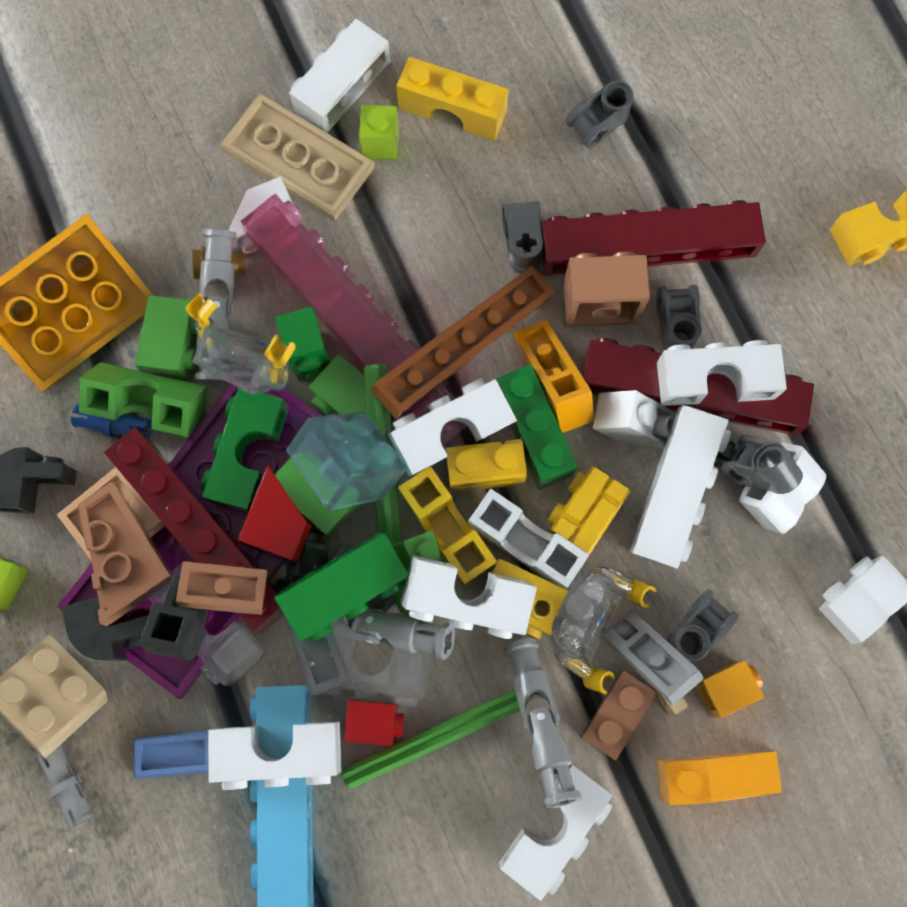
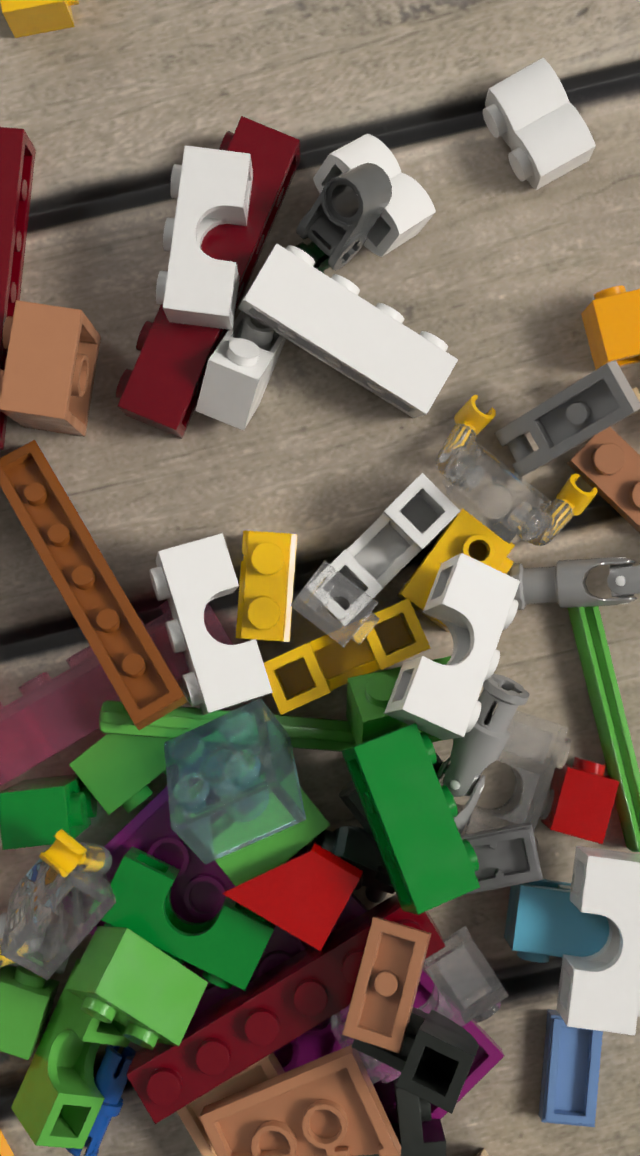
camera: 85 degrees left, 10 degrees up
(194, 423) = (136, 986): none -> bright green brick
(491, 493) = (314, 600): none -> clear brick
(536, 425) = (224, 506): green brick -> none
(557, 374) = (157, 465): light orange slope -> none
(589, 510) = (354, 461): yellow brick -> none
(679, 312) = (97, 274): dark grey piece -> none
(705, 623) = (531, 338): dark grey piece -> none

